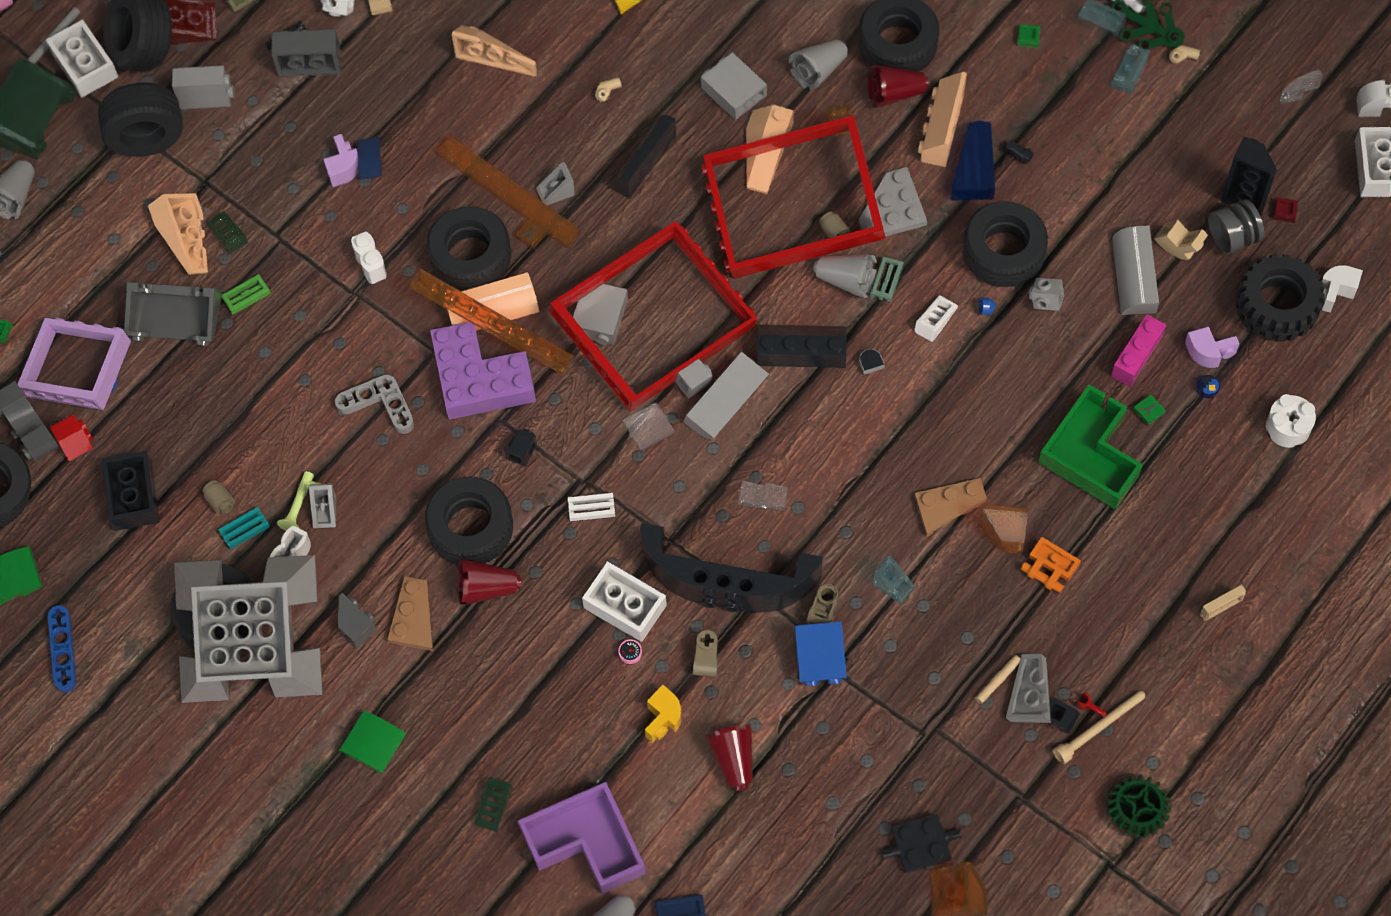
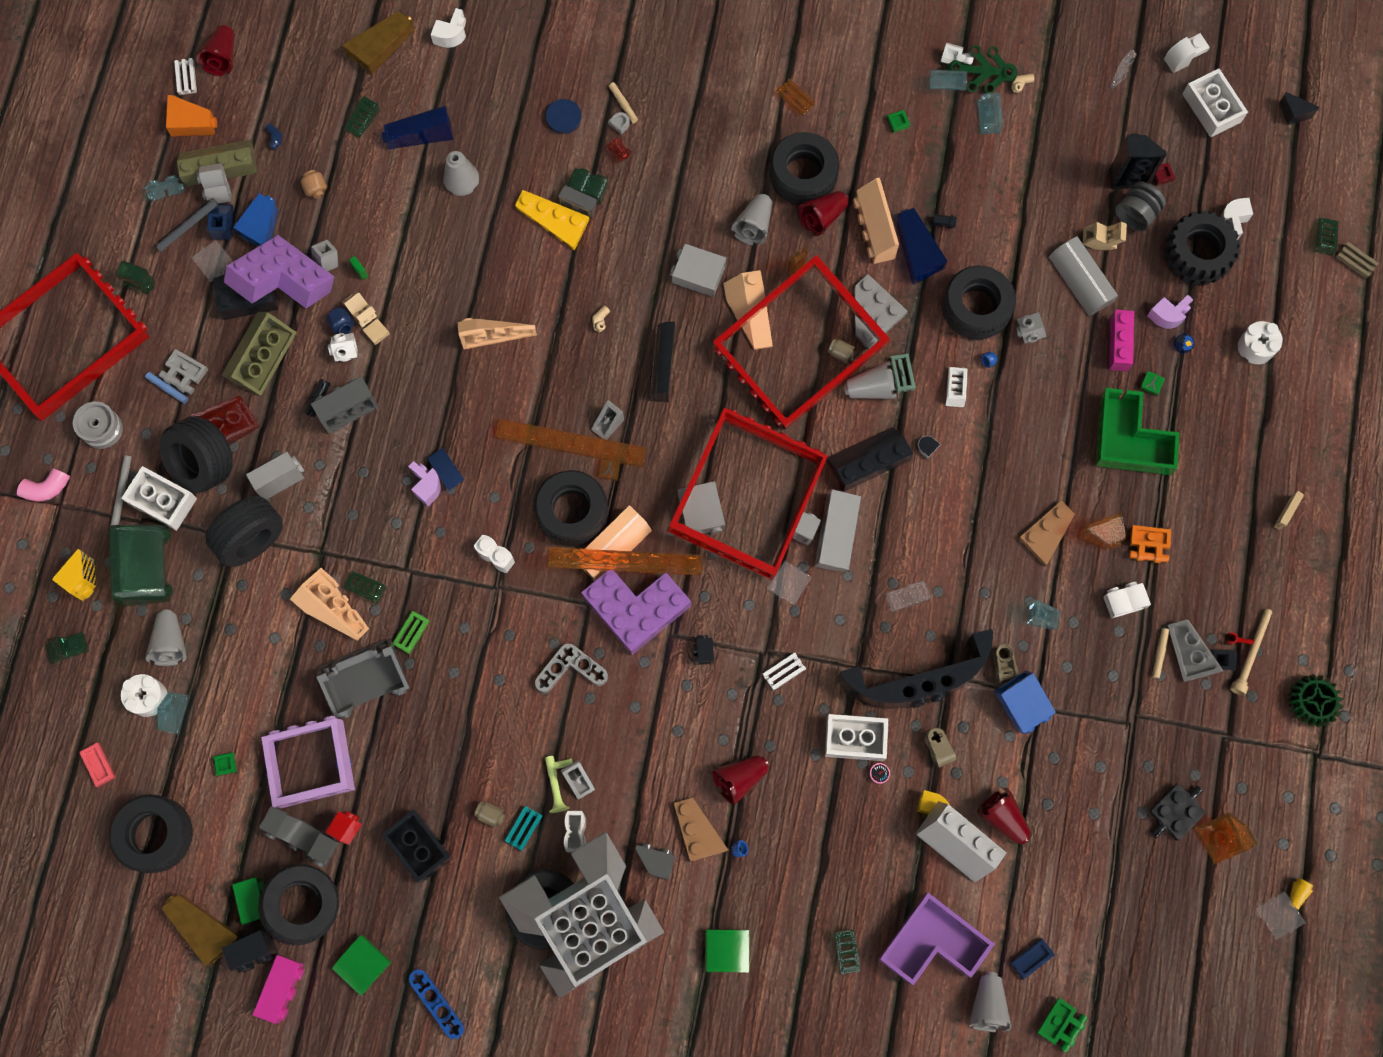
camera: 30 degrees left, 10 degrees up
(445, 648) = (743, 848): none -> blue hinge
(463, 494) = (712, 709): black tyre -> none
(669, 752) = (960, 842): none -> light grey slope
(991, 607) = (1126, 600): none -> white brick

